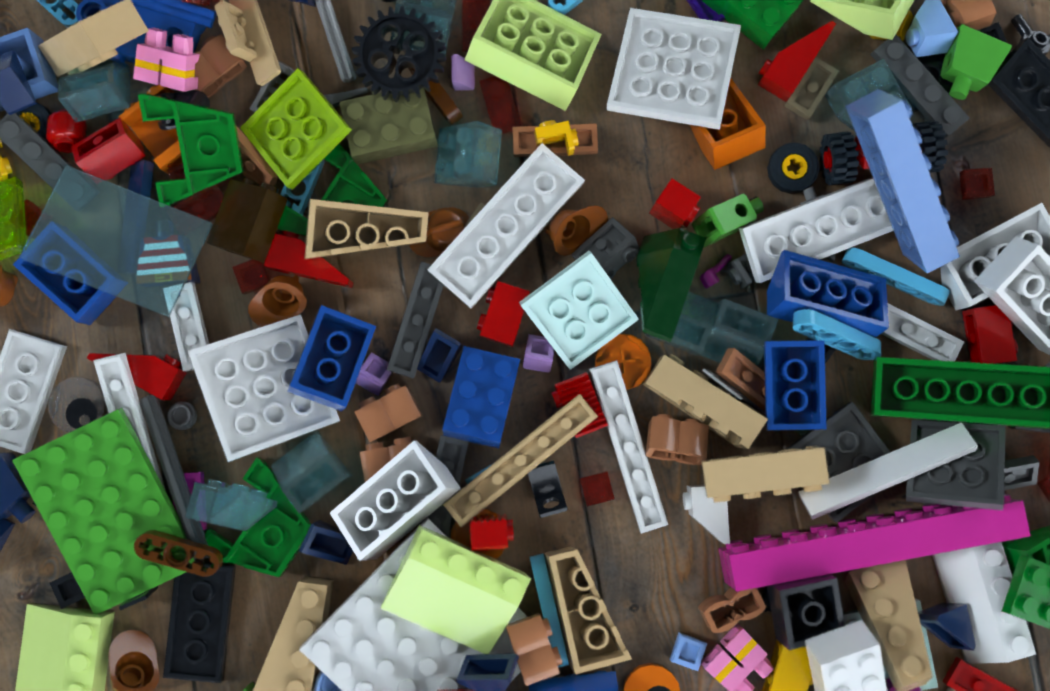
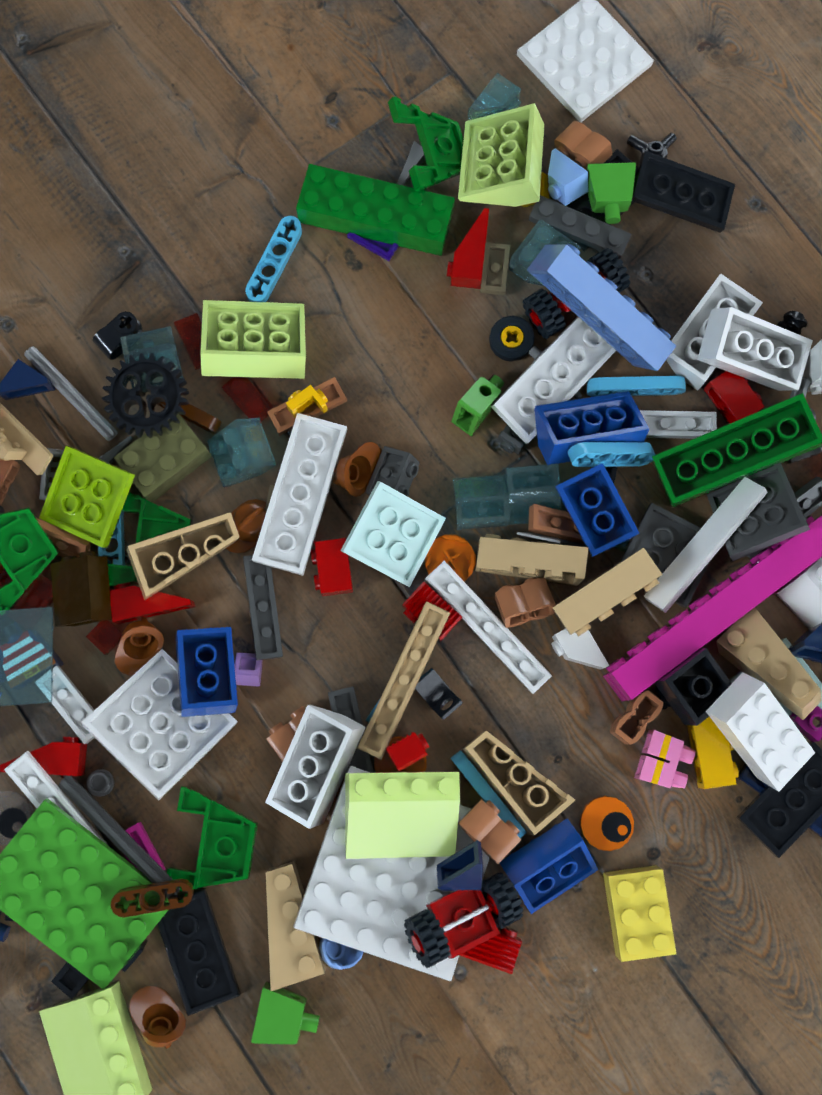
camera: 25 degrees left, 5 degrees down
(229, 506) = (176, 838): clear light blue slope -> none
(309, 472) = (232, 776): clear light blue slope -> none
(326, 543) = (275, 829): dark blue slope -> none
(388, 413) = (275, 694): nougat brick -> none
(439, 355) = (295, 626): dark blue slope -> none
(462, 73) = (204, 388): lavender slope -> none
(481, 397) = (346, 644): blue brick -> none
(538, 354) = (377, 587): lavender slope -> none
(597, 488) = (479, 674): clear red plate -> none
(666, 273) = (450, 472): dark green wedge -> none
(674, 68) = (376, 303): white plate -> none
(676, 205) = (431, 412): red brick -> none
(688, 651) = (620, 773): light blue tile -> none
(709, 277) = (488, 458): magenta hand -> none
(739, 135) = (435, 327): orange slope -> none
(977, 183) = (664, 282): clear red plate -> none

